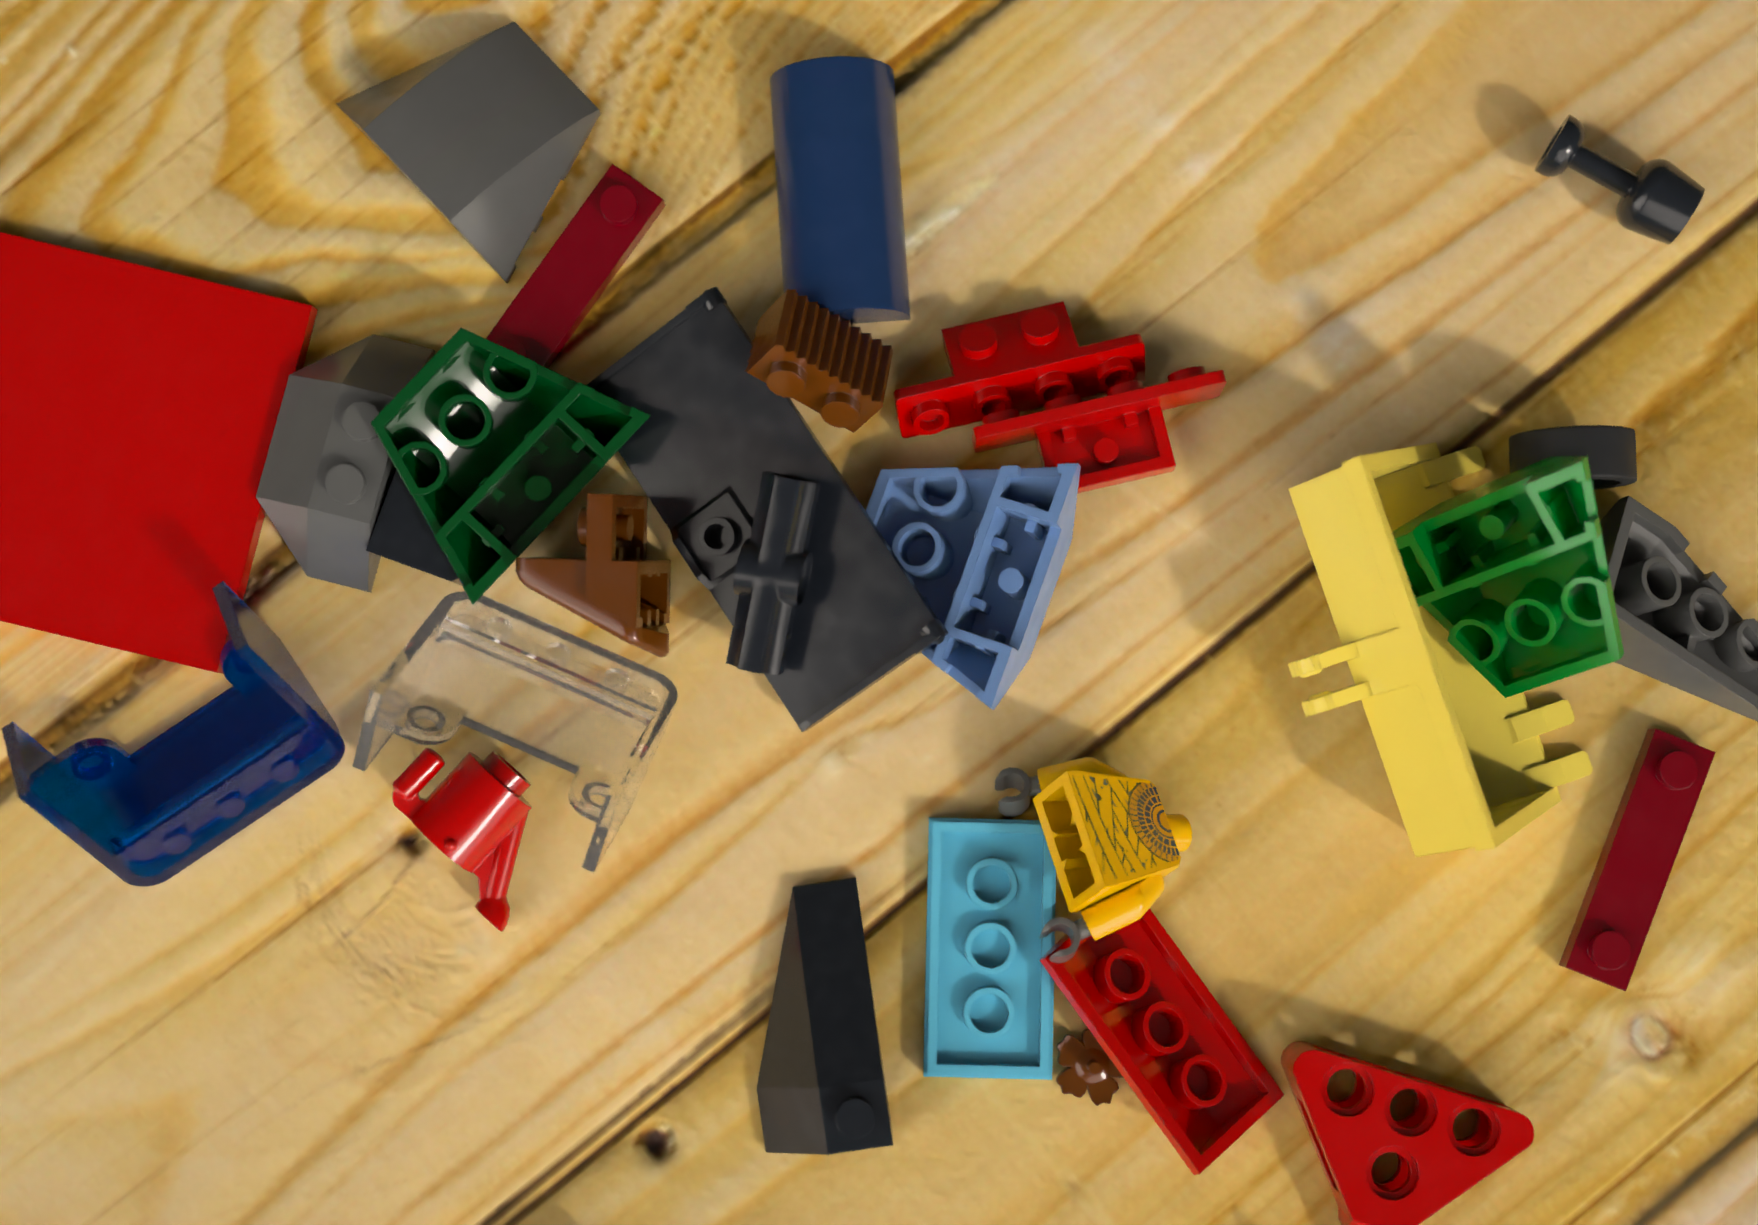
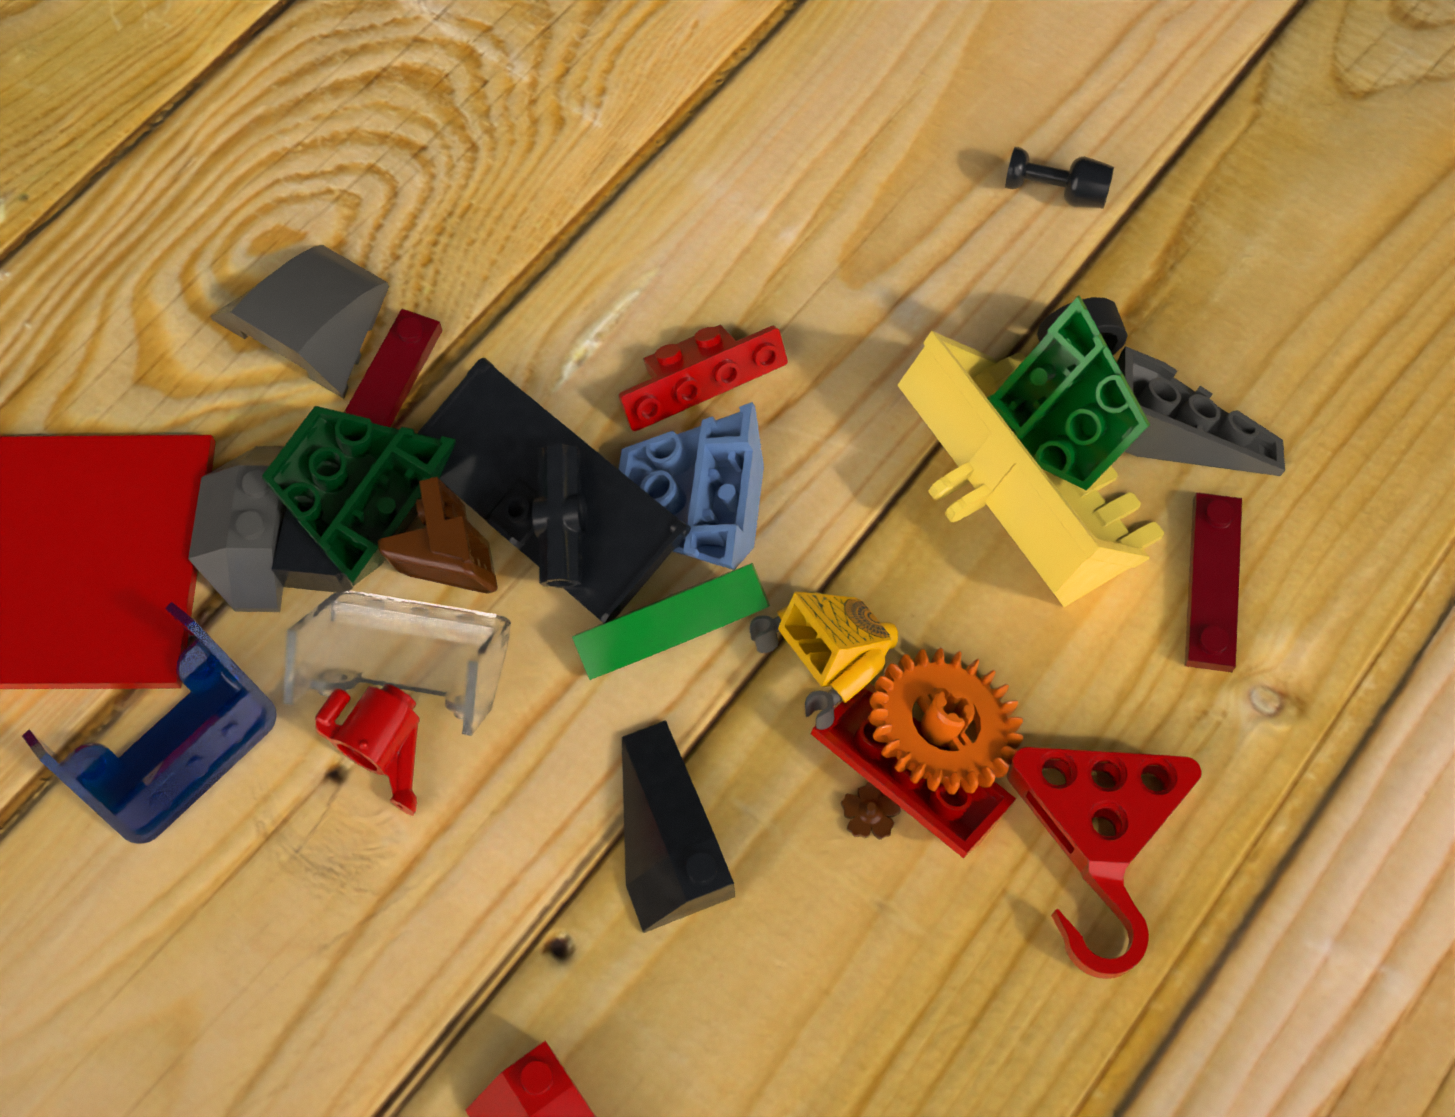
camera: 10 degrees left, 20 degrees down
(820, 361) = (564, 384): reddish brown brick -> none
(841, 187) = (556, 293): dark blue brick -> none
(895, 753) = (671, 621): none -> green slope
(983, 973) = (772, 757): medium azure tile -> none
(1108, 436) = (774, 386): red bracket -> none
(1269, 974) = (949, 703): none -> orange gear

